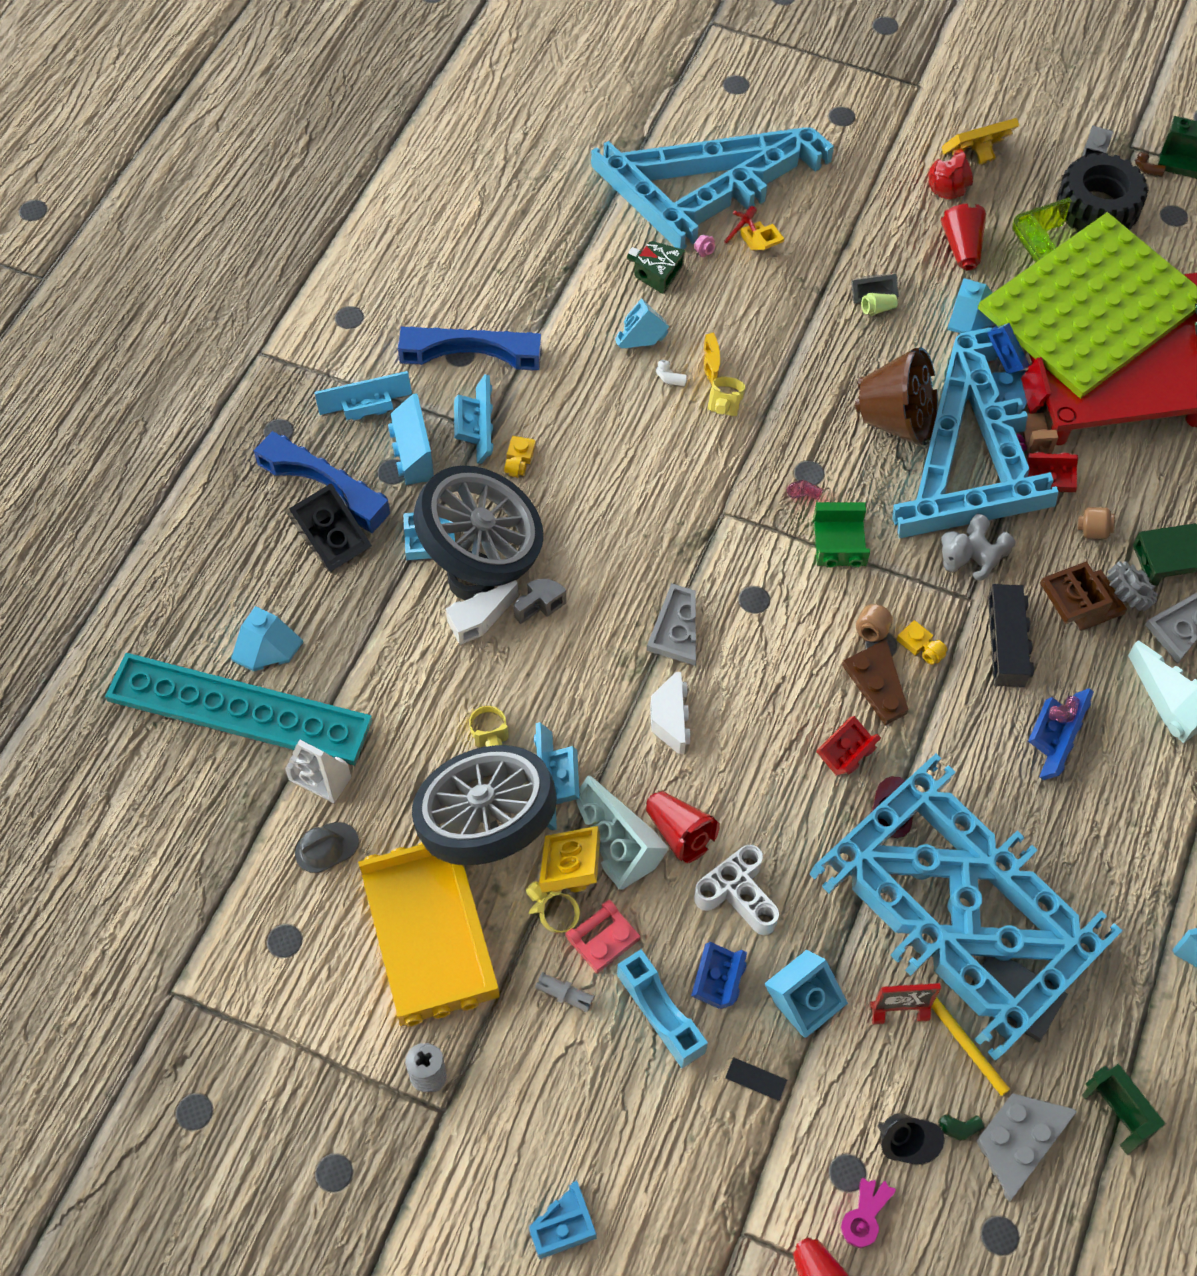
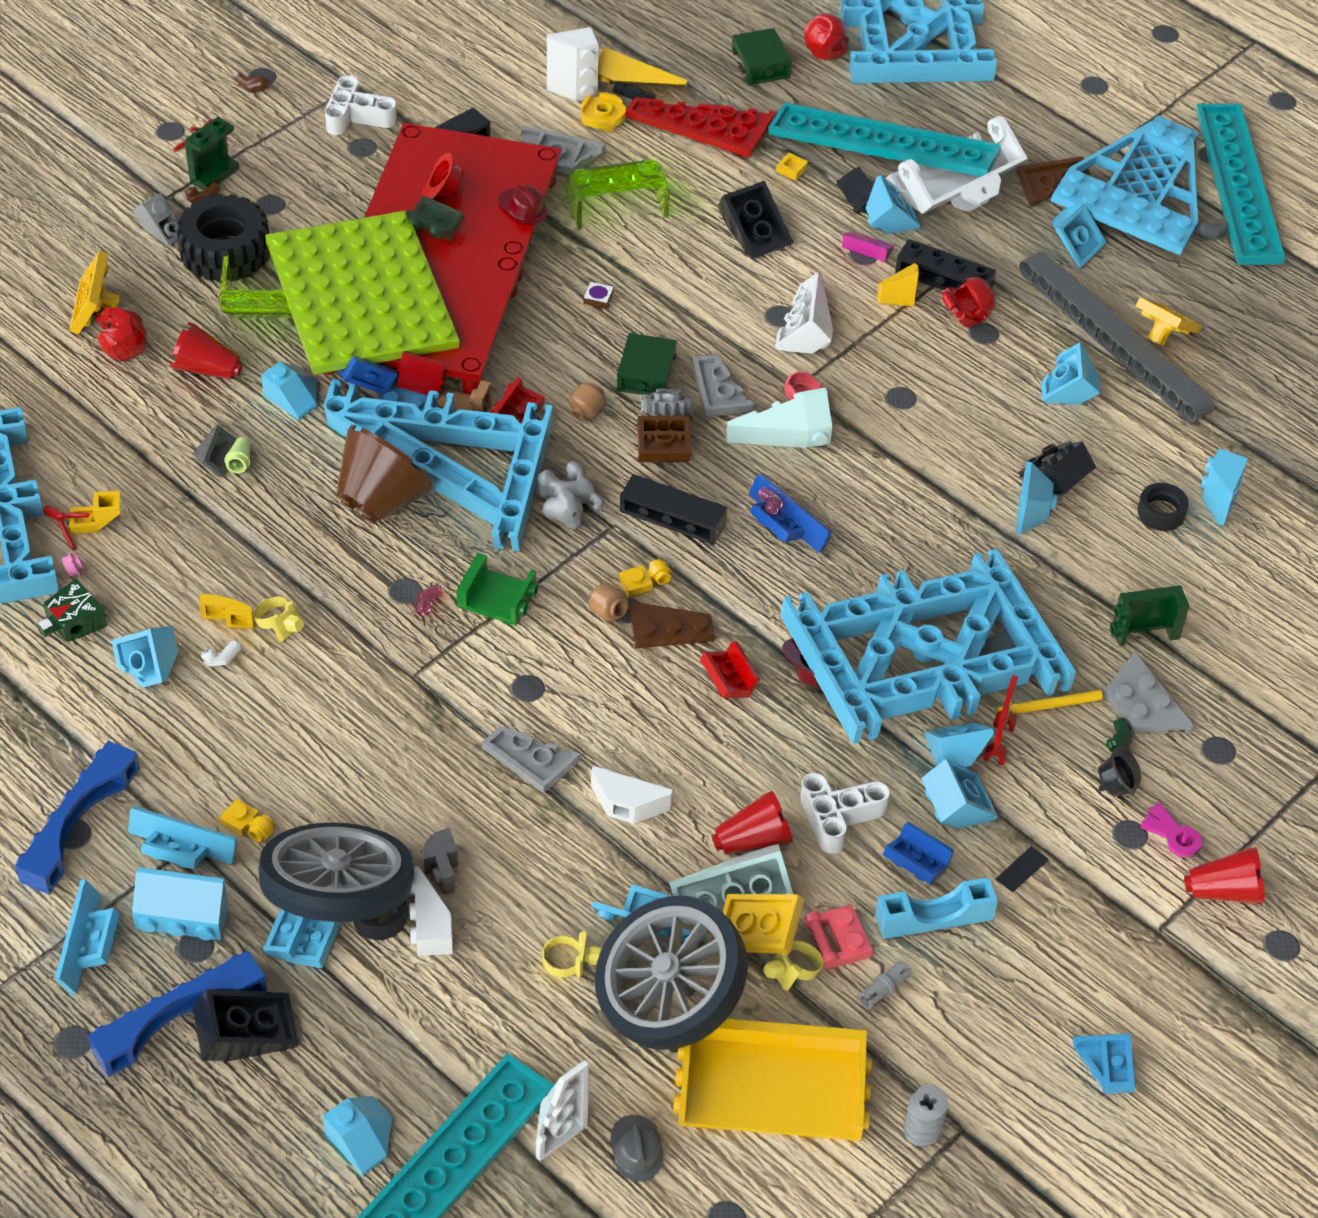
camera: 70 degrees left, 10 degrees down
(866, 969) = (958, 743): none -> medium azure slope

